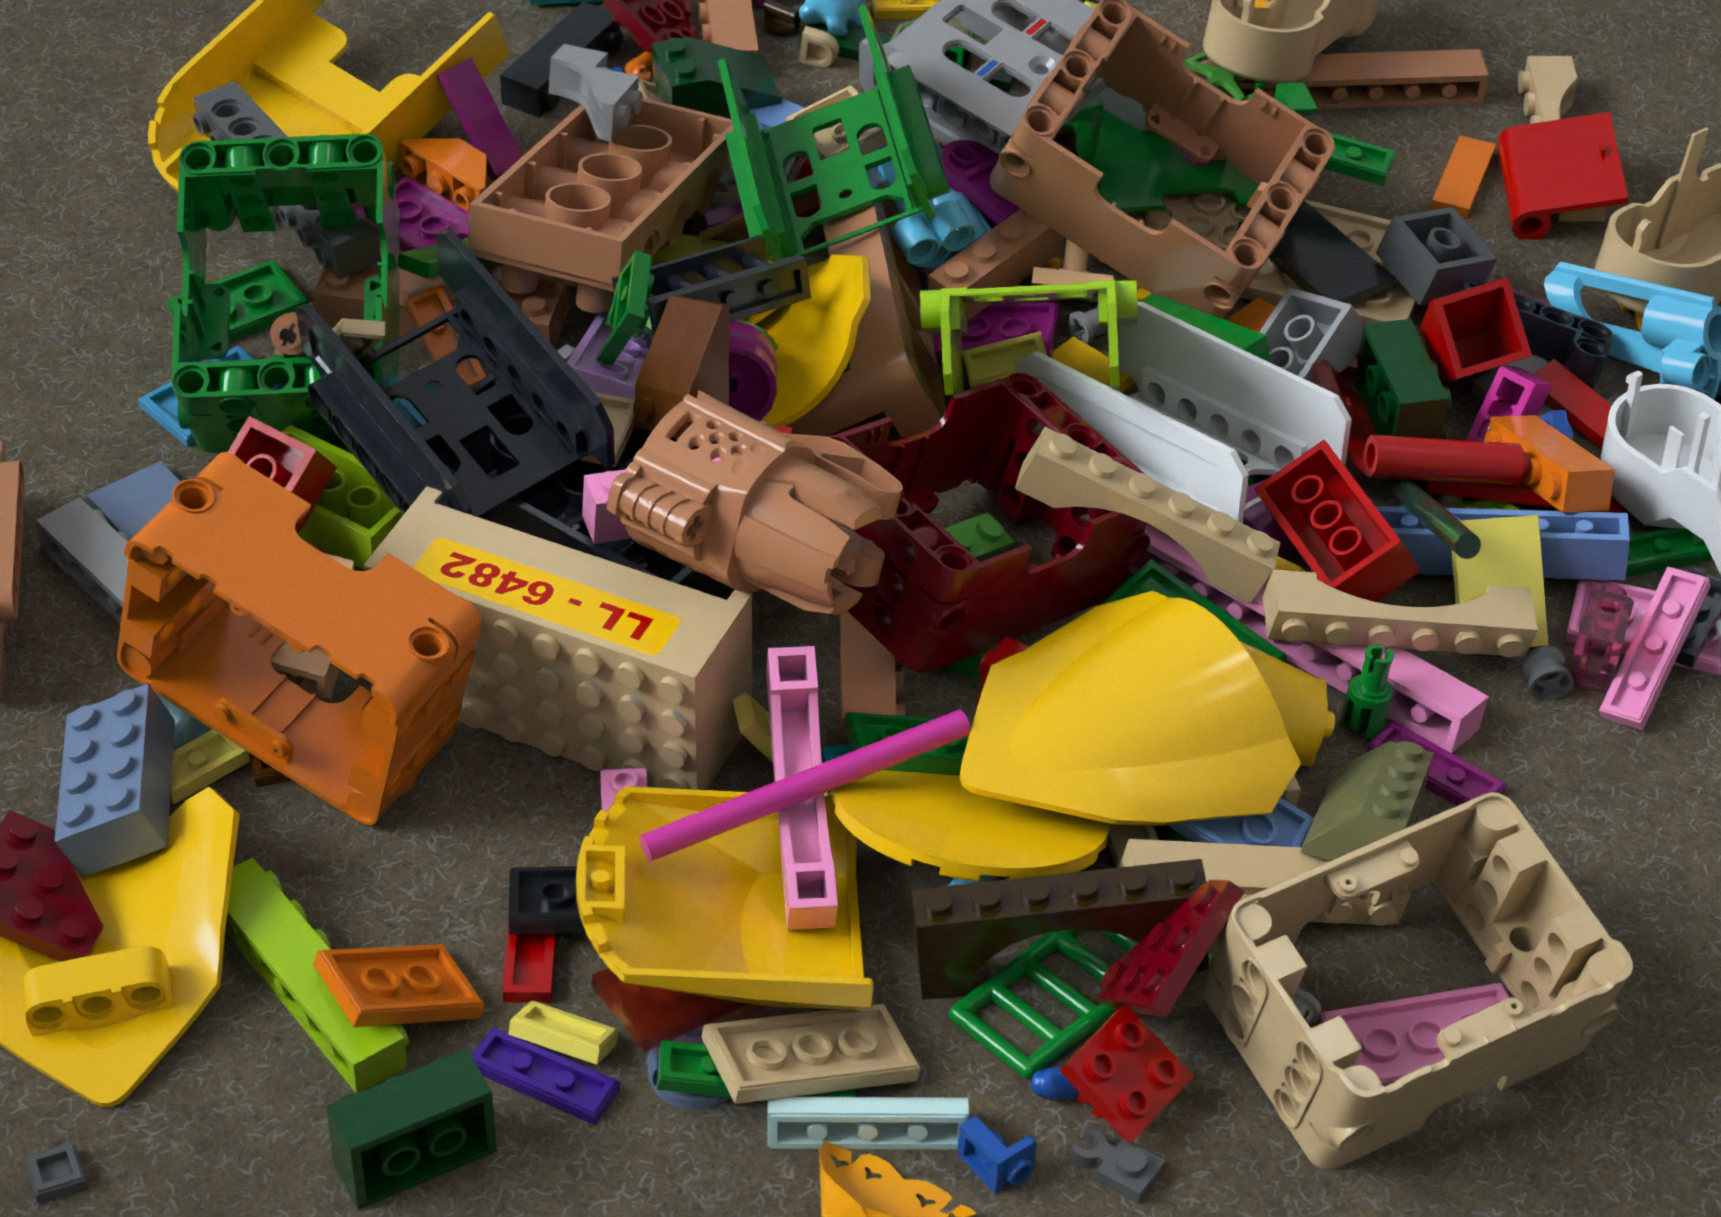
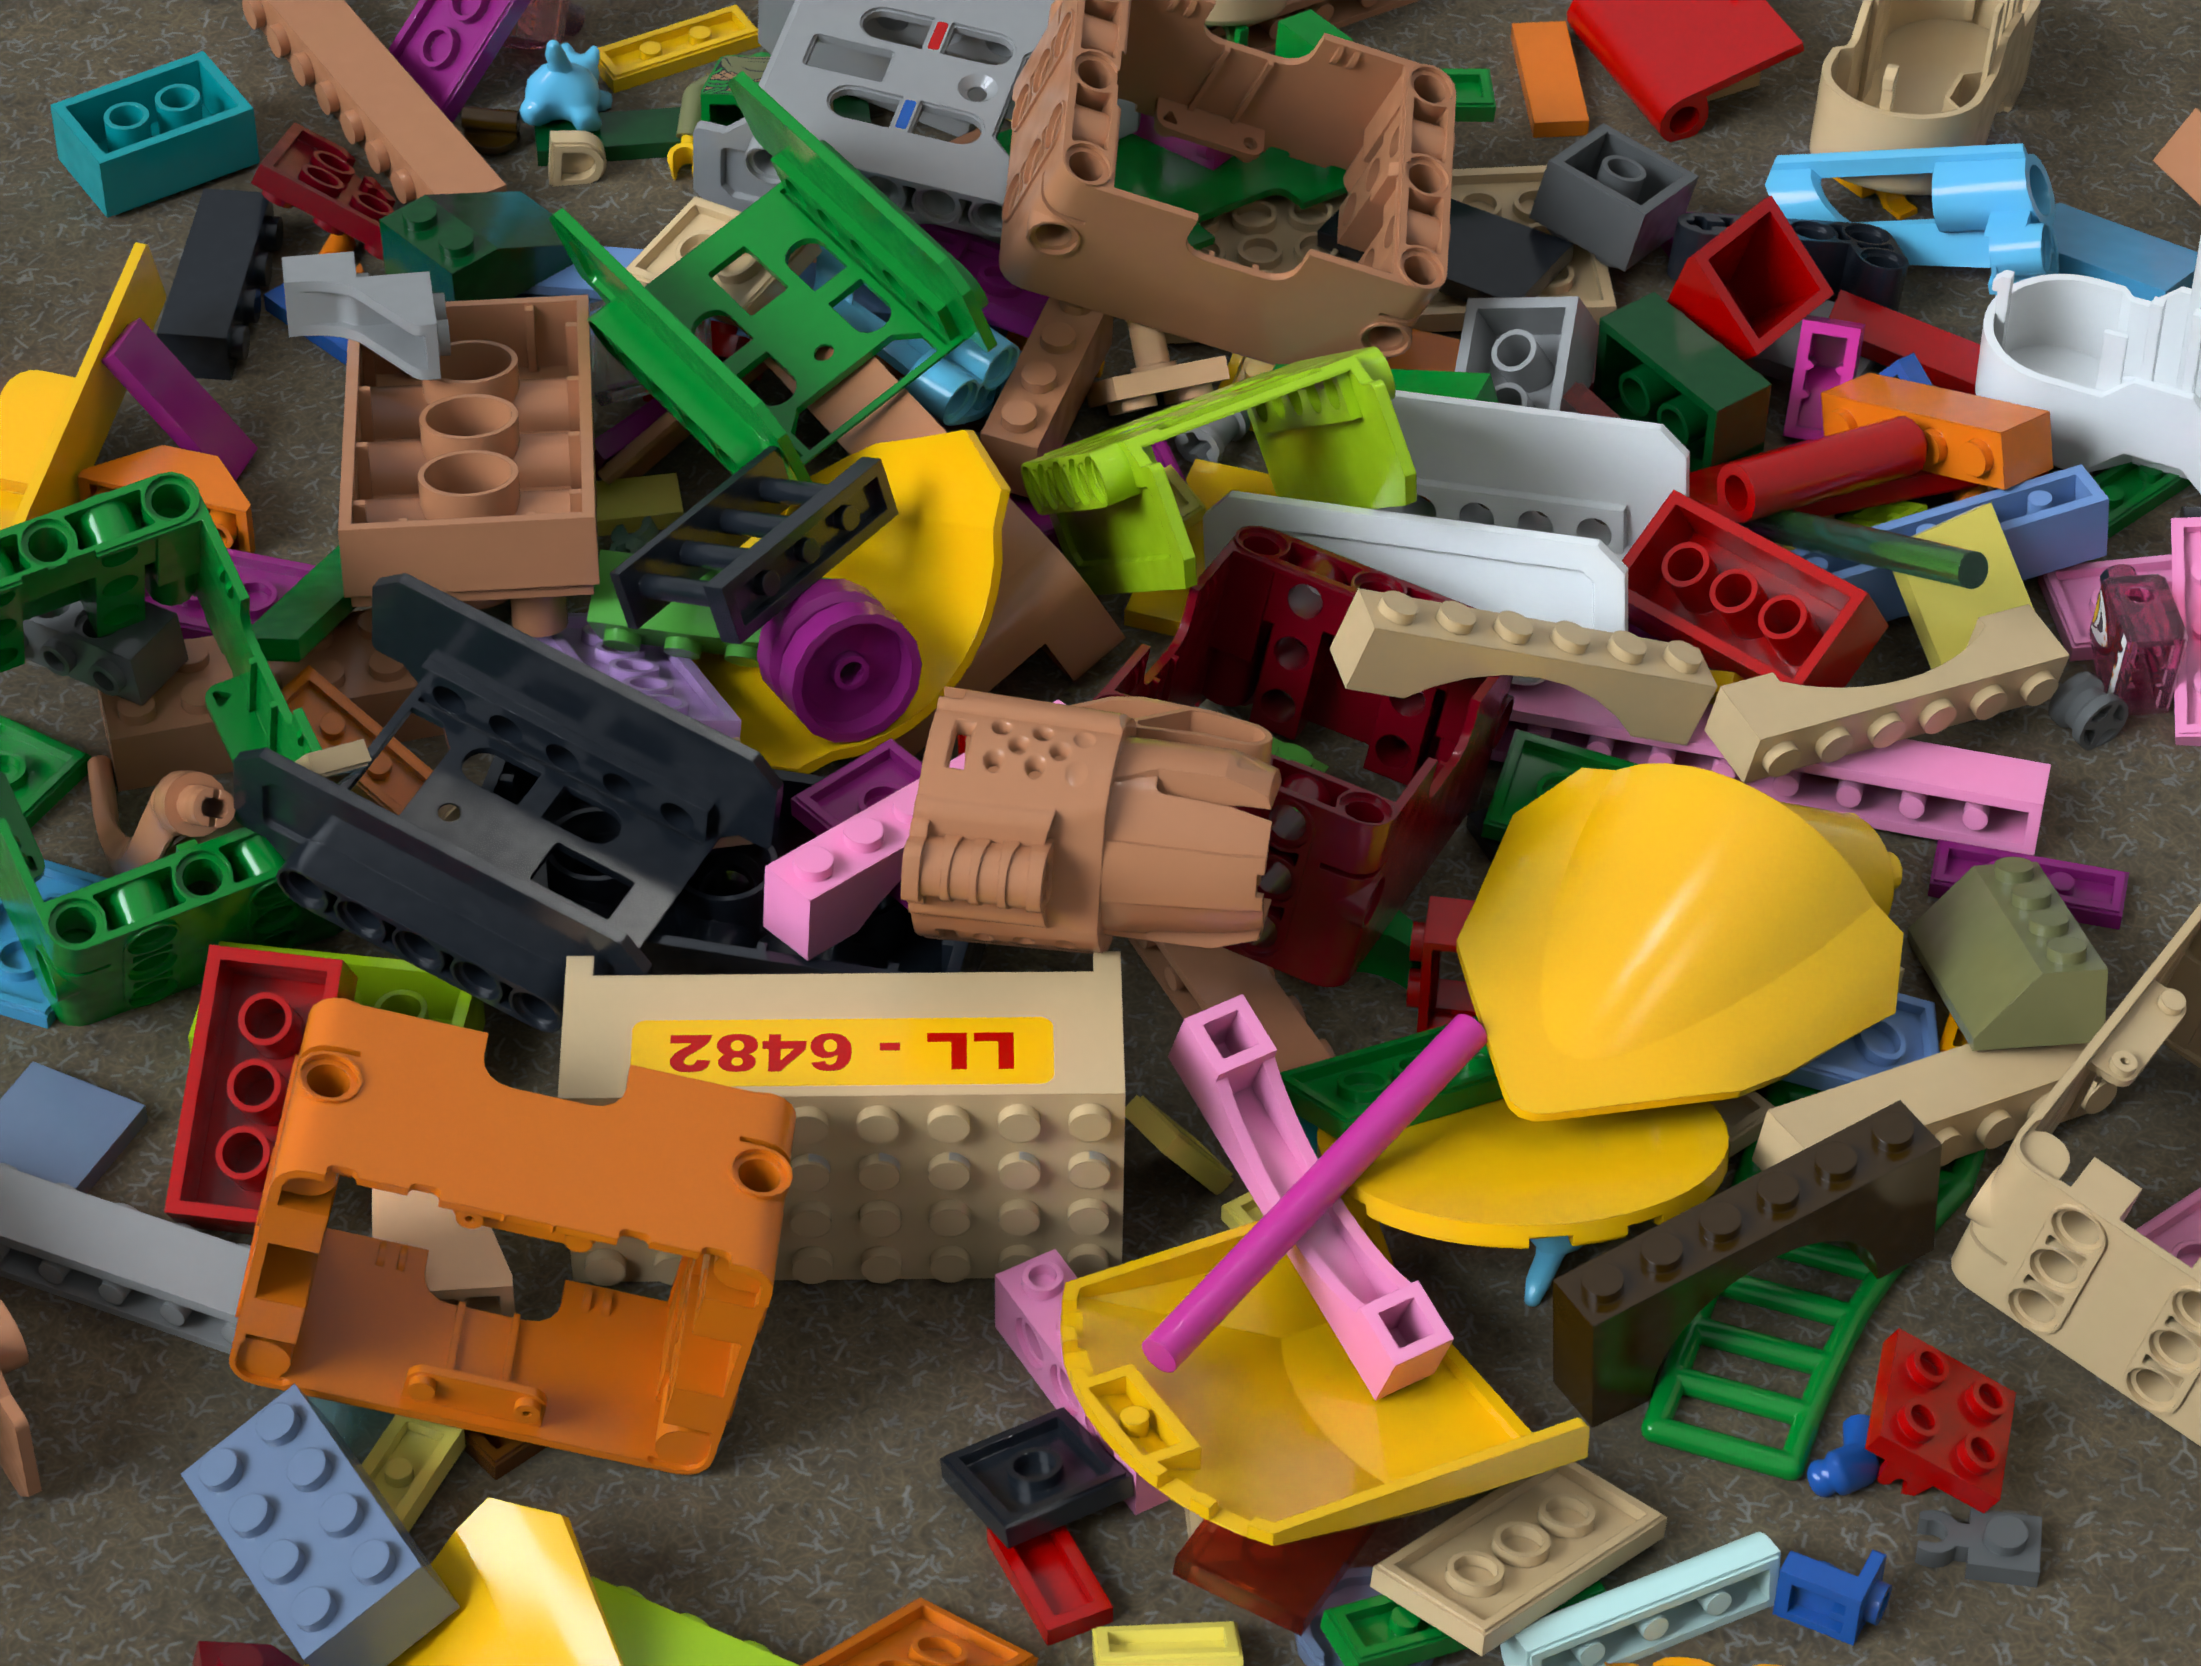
camera: 25 degrees left, 0 degrees up
(628, 306) = (664, 606): green wing -> none
(683, 358) = (810, 668): reddish brown slope -> none
(1165, 960) = (1932, 1242): dark red plate -> none
(1369, 694) = (1911, 805): green arm -> none

